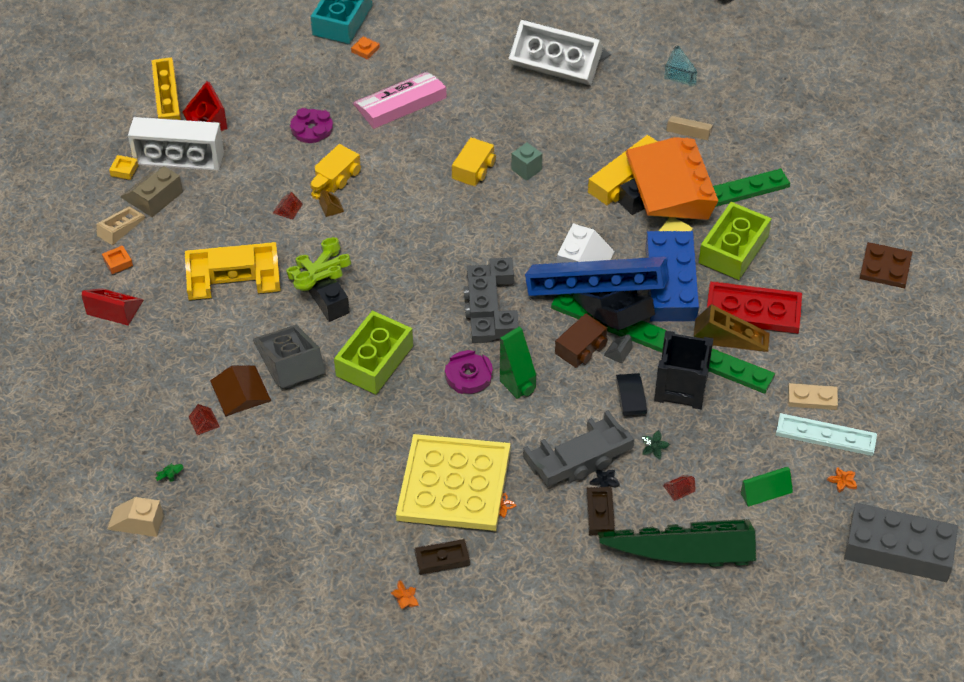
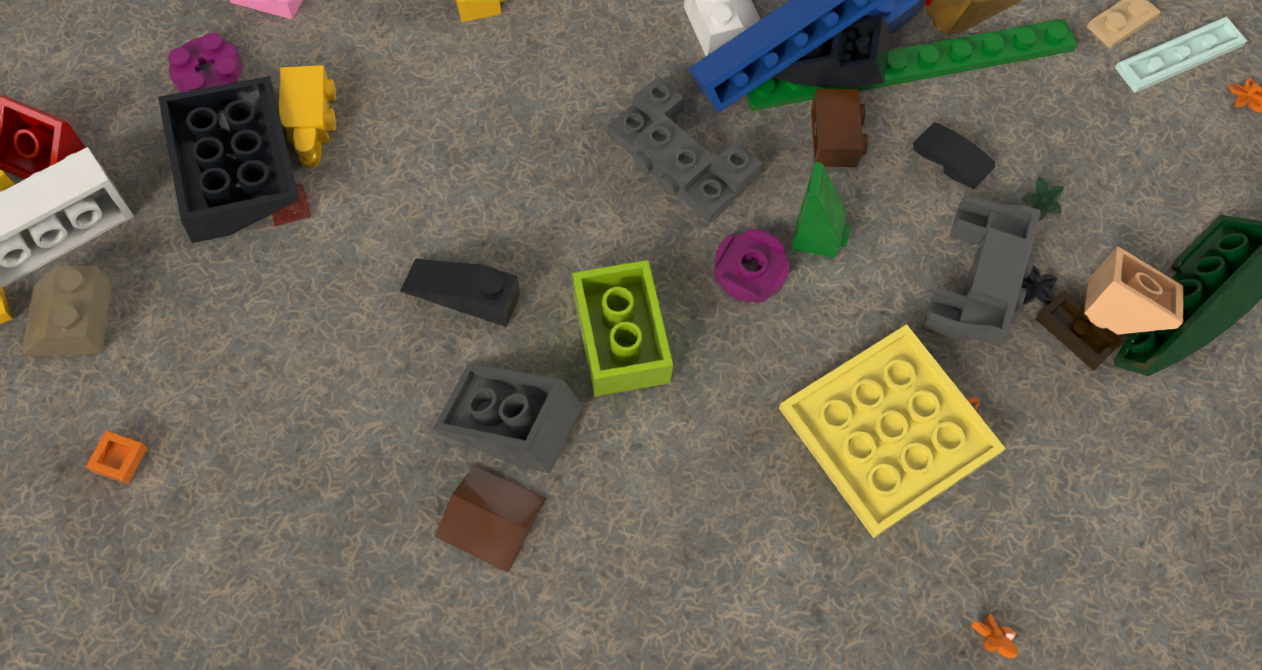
camera: 45 degrees left, 15 degrees up
(111, 305) = (177, 533): red slope -> none
(113, 234) = (68, 423): tan slope -> none
(203, 419) = (487, 604): clear red slope -> none
(232, 265) = (300, 344): yellow bracket -> none
(276, 166) = (227, 156): none -> black slope
(306, 279) = (436, 292): lime plant -> none
(330, 203) = (342, 161): pearl gold slope -> none
(442, 556) = (980, 543): dark brown plate -> none
(619, 348) = (880, 107): dark grey slope -> none
(637, 504) = (1132, 296): none -> light nougat slope
(680, 486) = (1117, 228): clear red slope -> none
(683, 370) = (999, 81): black container -> none
(767, 486) = (1200, 161): green slope -> none

